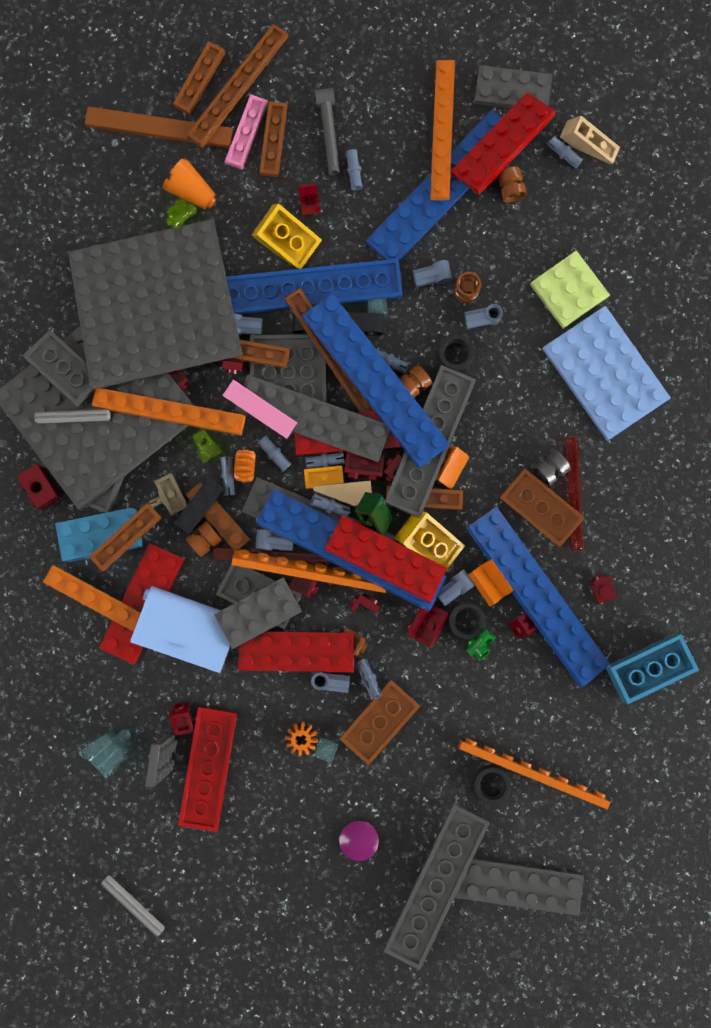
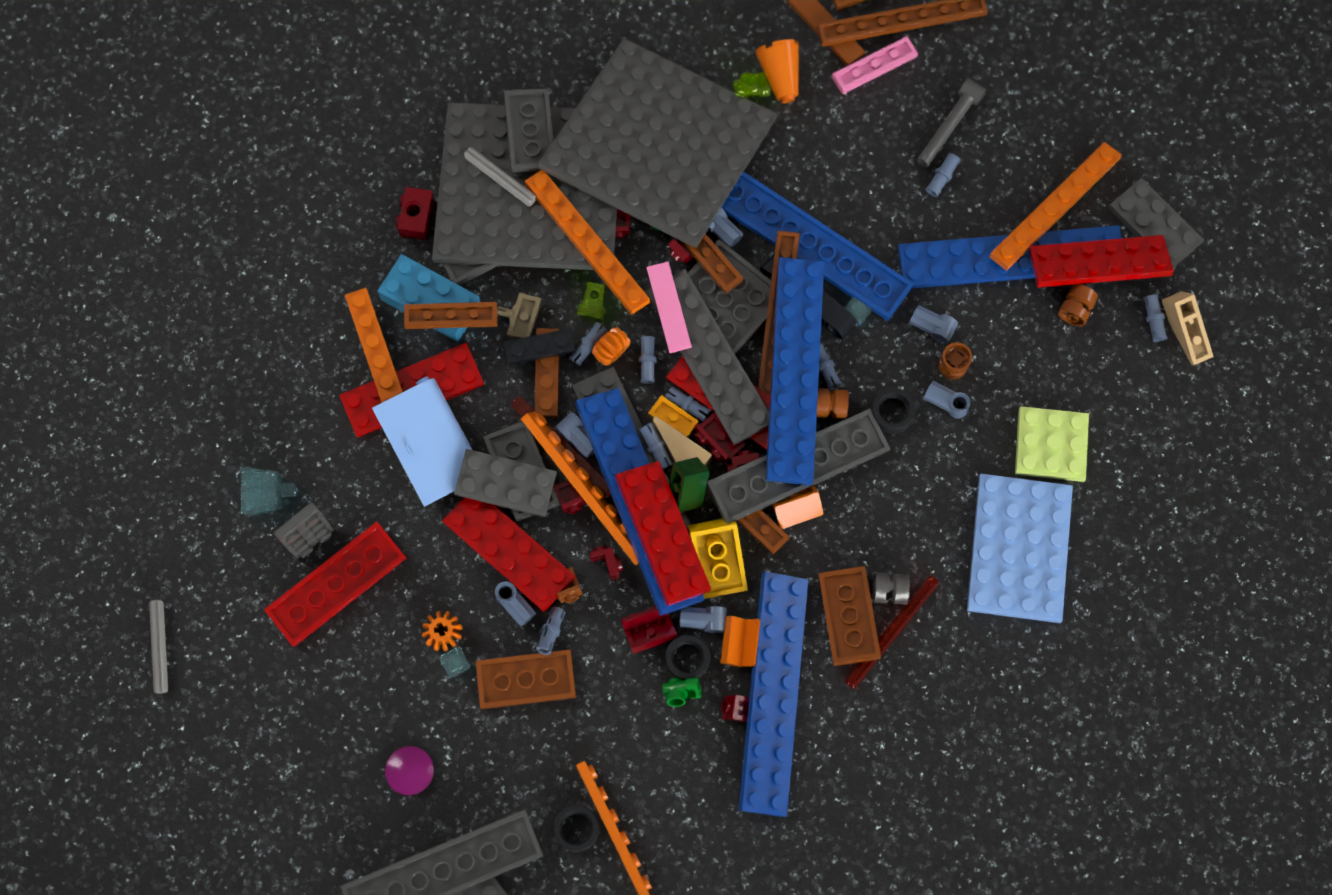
camera: 35 degrees right, 10 degrees down
(181, 718) = (352, 519): dark red bracket -> none
(203, 539) = (517, 379): dark orange wheel -> none
(273, 139) = (893, 90): dark orange plate -> none
(286, 236) = (829, 182): yellow slope -> none
(309, 198) = (879, 166): dark red bracket -> none
(602, 588) = (842, 740): dark red bracket -> none
(651, 668) = (822, 852): dark azure brick -> none

